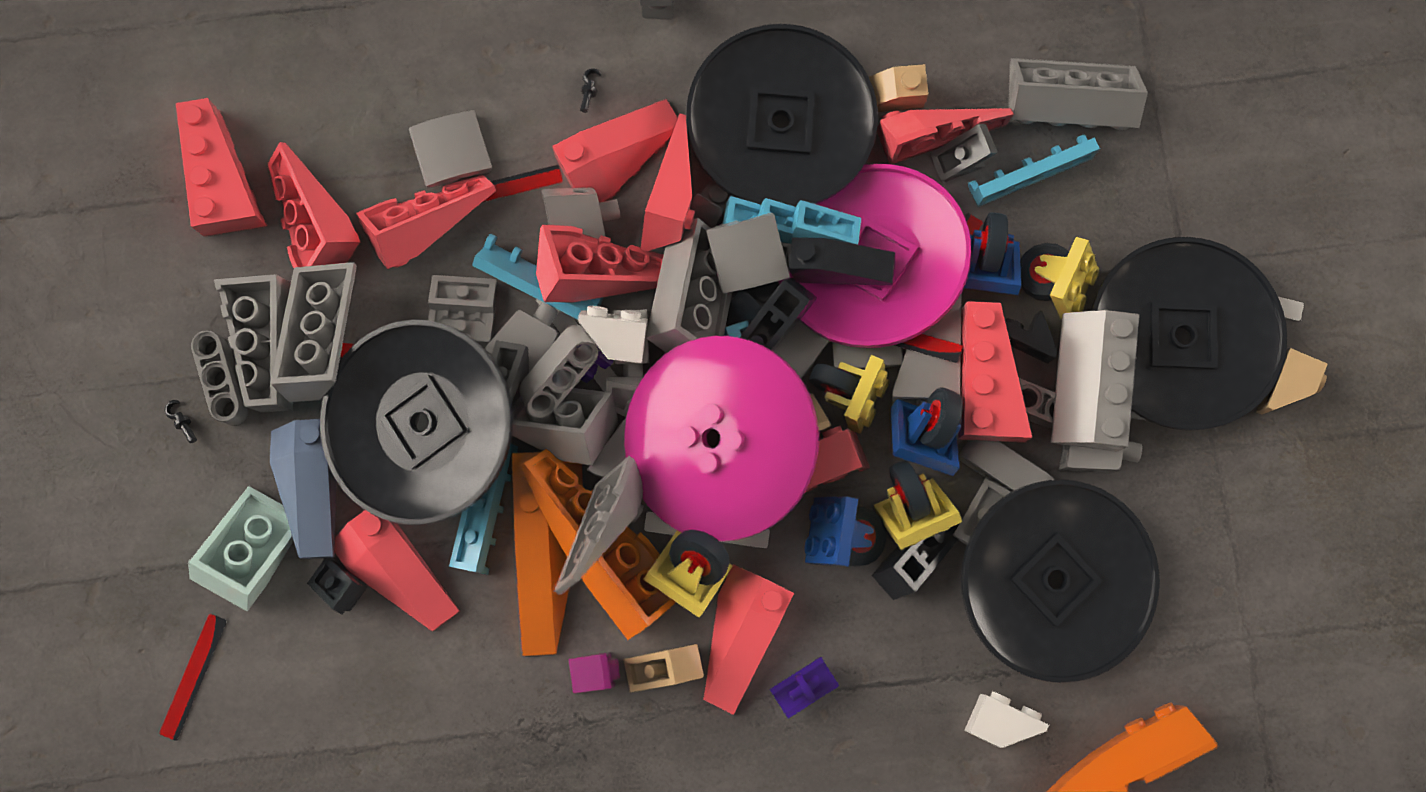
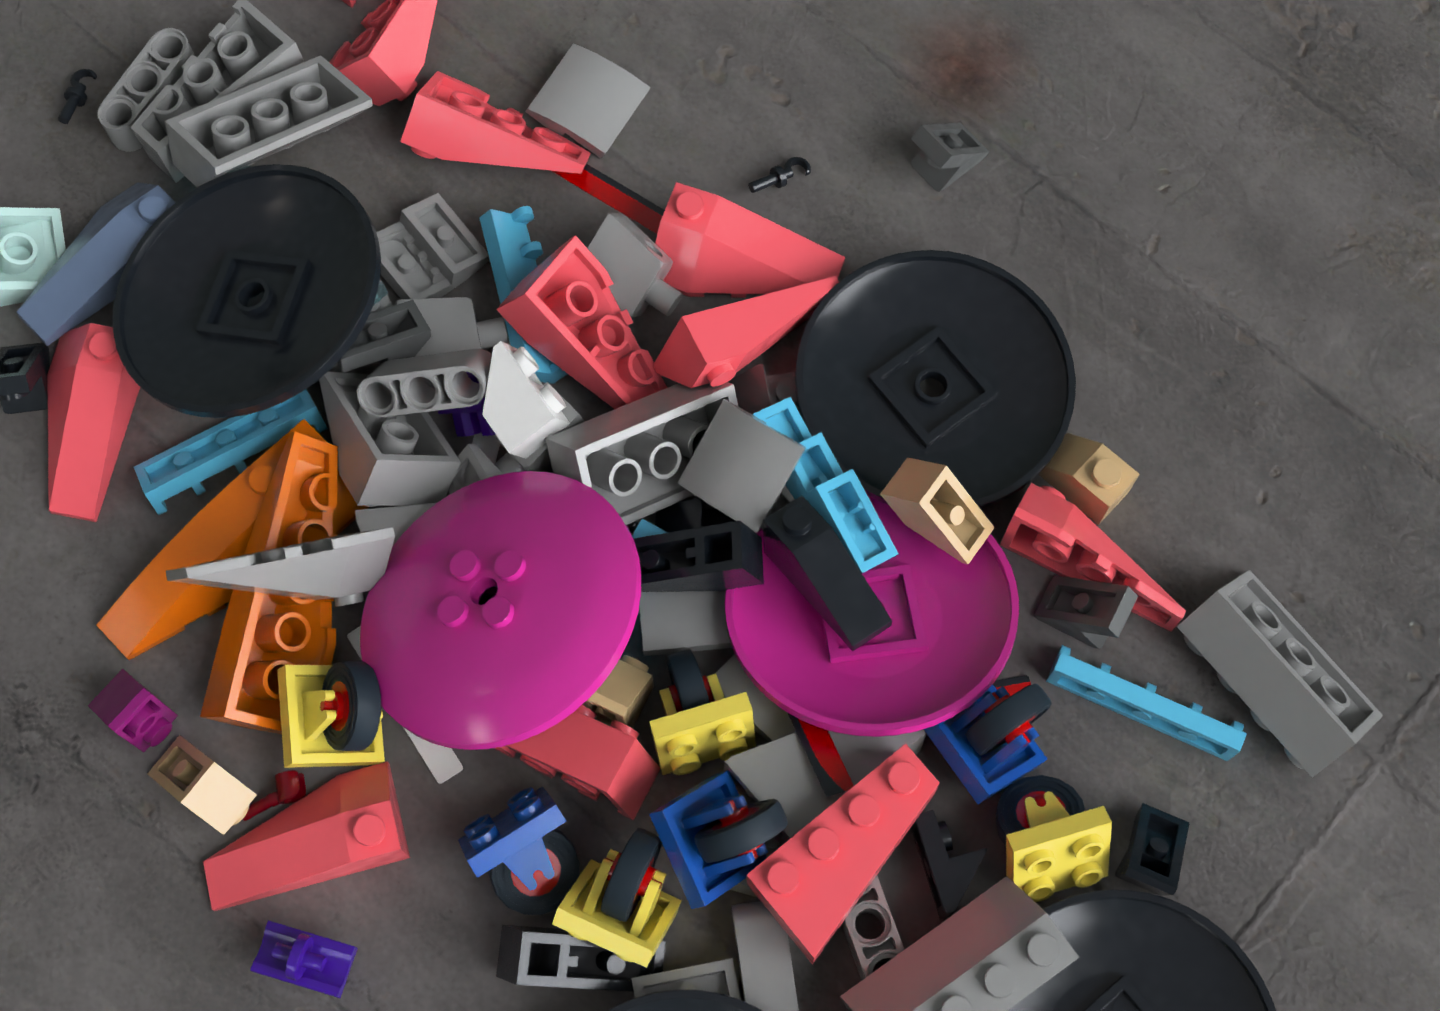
camera: 50 degrees right, 10 degrees down
(703, 625) = (289, 789): none -> dark red hand
(856, 177) = (938, 508): none -> tan slope
(1109, 233) = (1154, 851): none -> black slope

